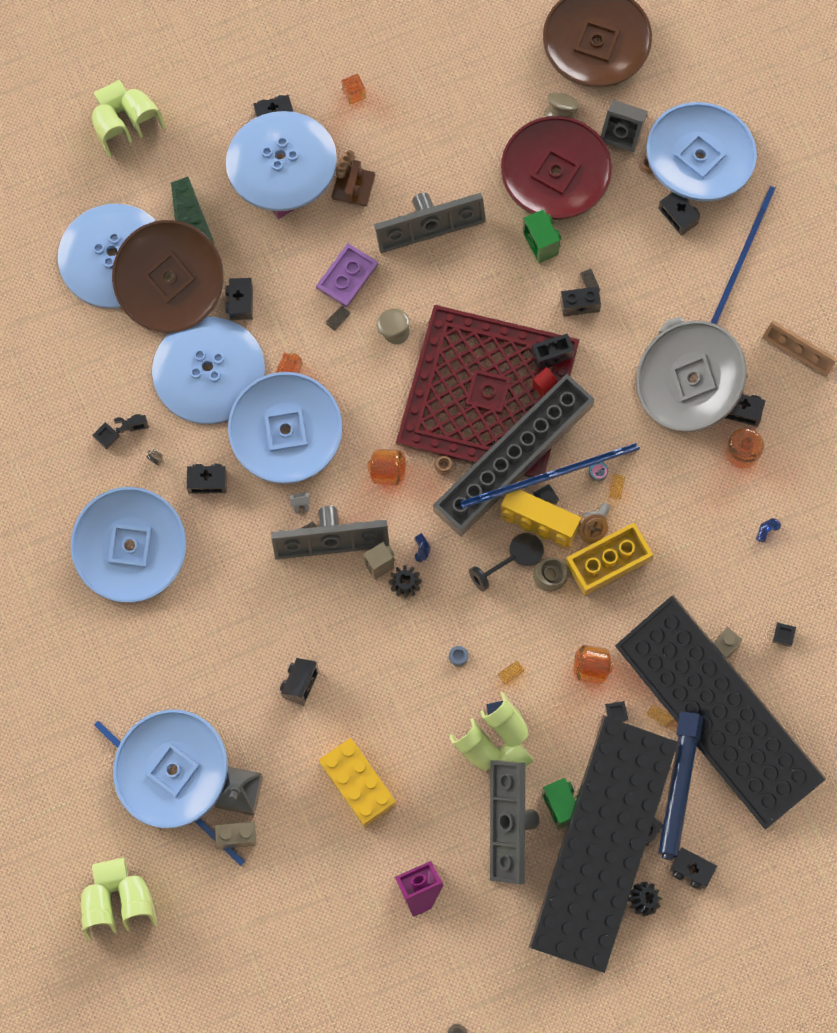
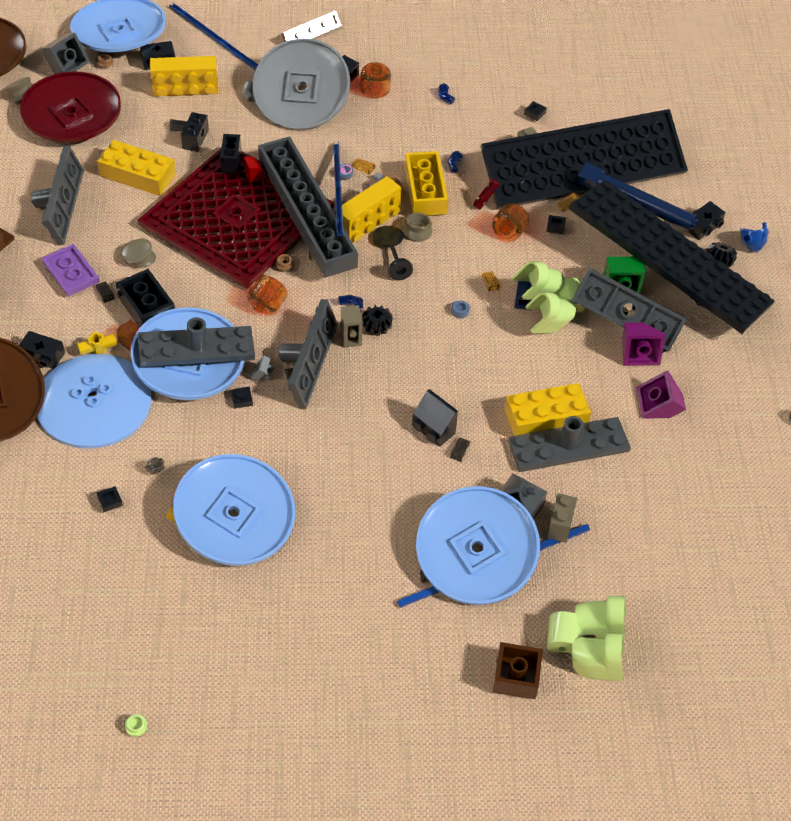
camera: 75 degrees left, 20 degrees down
(59, 846) = (518, 670): none -> reddish brown brick
(134, 423) = (112, 470): black plate -> none
(215, 484) = (201, 431): black brick -> none
(262, 337) = (97, 343): none -> yellow axle
(263, 496) = (241, 397): none -> black plate
(285, 716) = (460, 449): none -> clear smoke piece
(298, 445) = (196, 345): none -> dark grey plate
(334, 359) = (143, 296): none -> black brick
(342, 832) = (569, 443): none -> dark grey plate
(475, 846) = (642, 344): none -> magenta slope
(504, 270) = (136, 167): none -> yellow brick
(541, 235) = (124, 128): green brick -> none
(622, 626) = (486, 194): none -> dark red axle
(651, 254) = (184, 75): none -> yellow brick
(665, 573) = (454, 157): none -> clear blue arm
(689, 926) = (755, 239): none -> blue helmet

